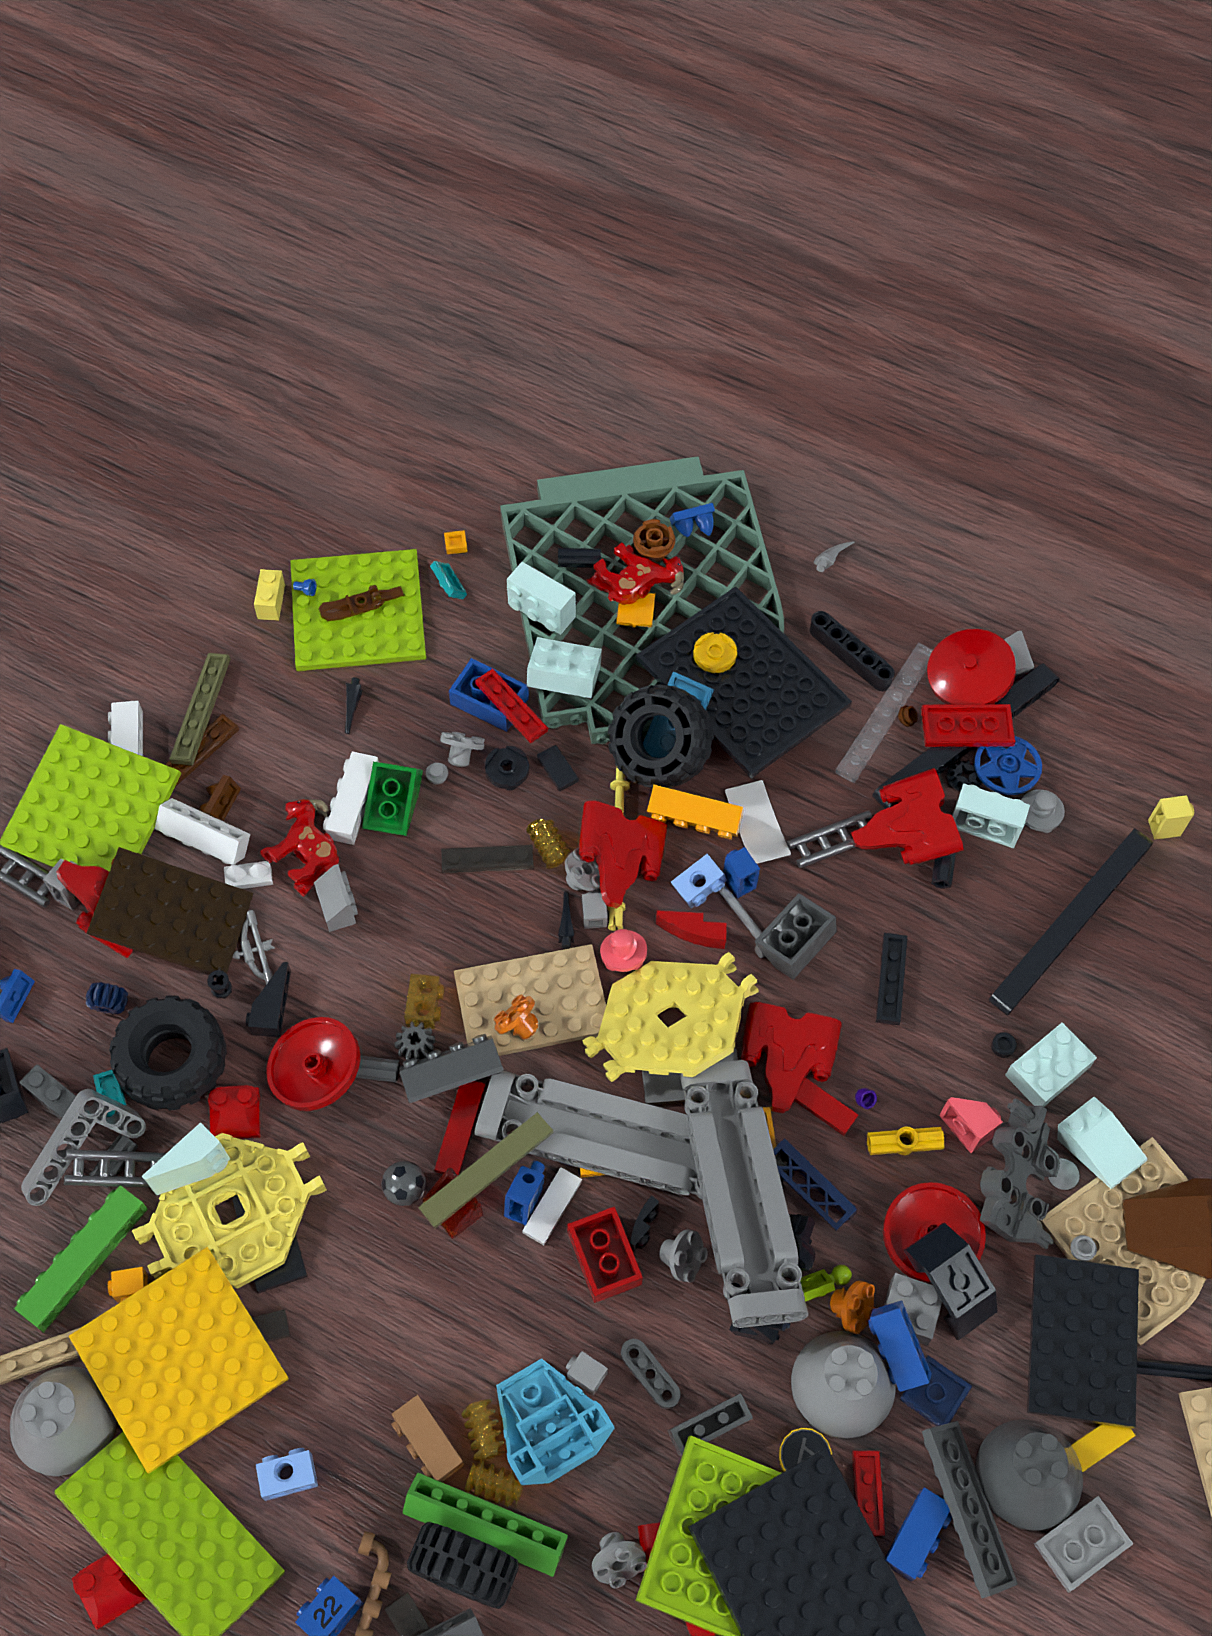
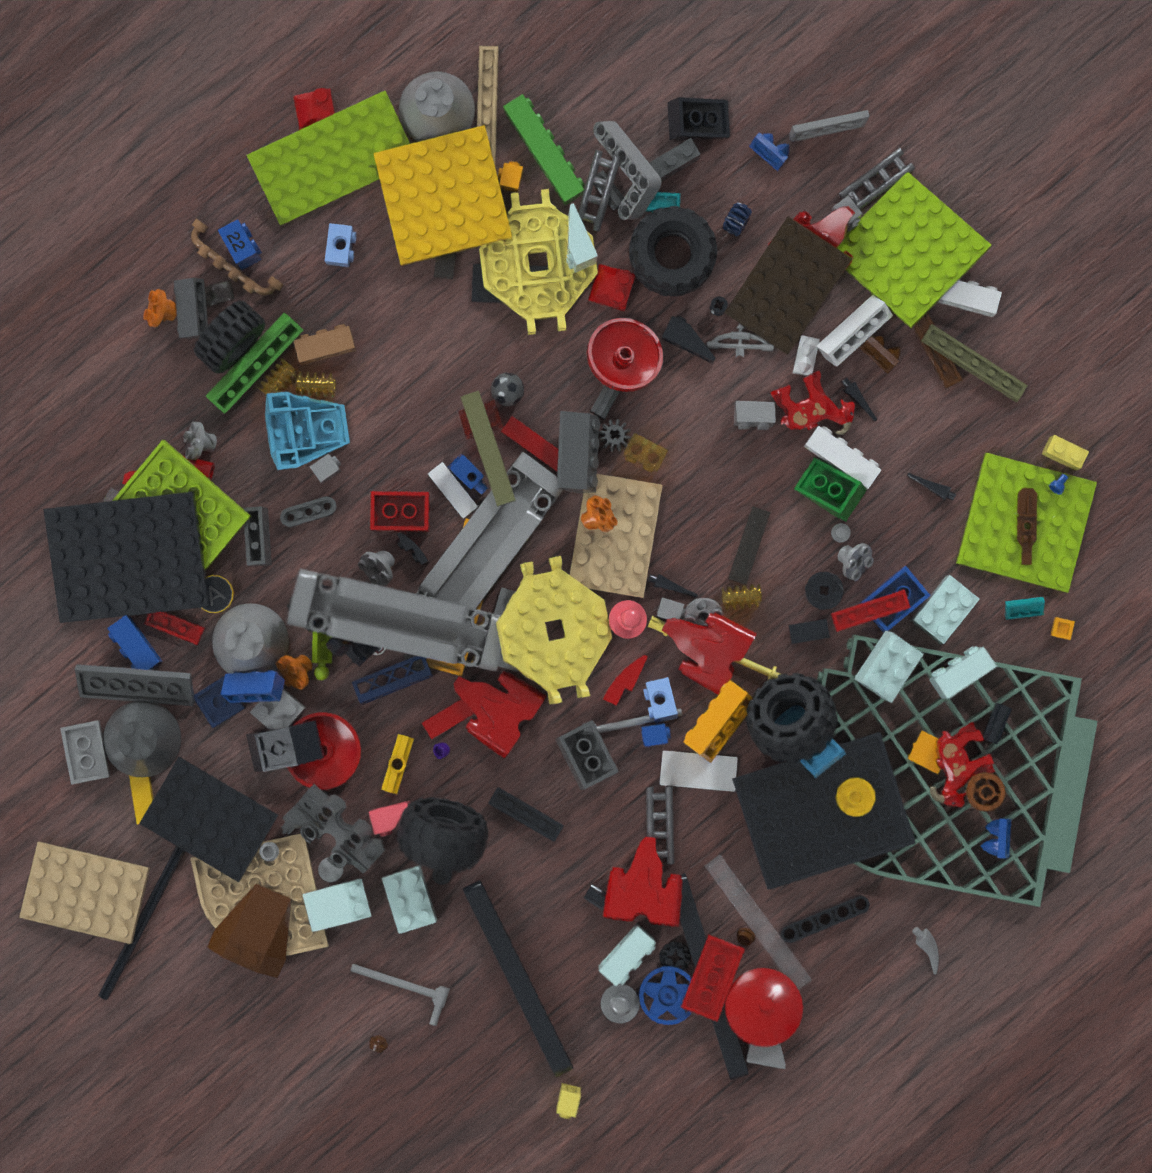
camera: 110 degrees right, 25 degrees up
(273, 813) = (853, 391): none -> black piece
(481, 642) = (945, 609): none -> light aqua brick
(964, 1042) = (442, 834): none -> black tyre
(1138, 996) = (439, 995): none -> light grey bar

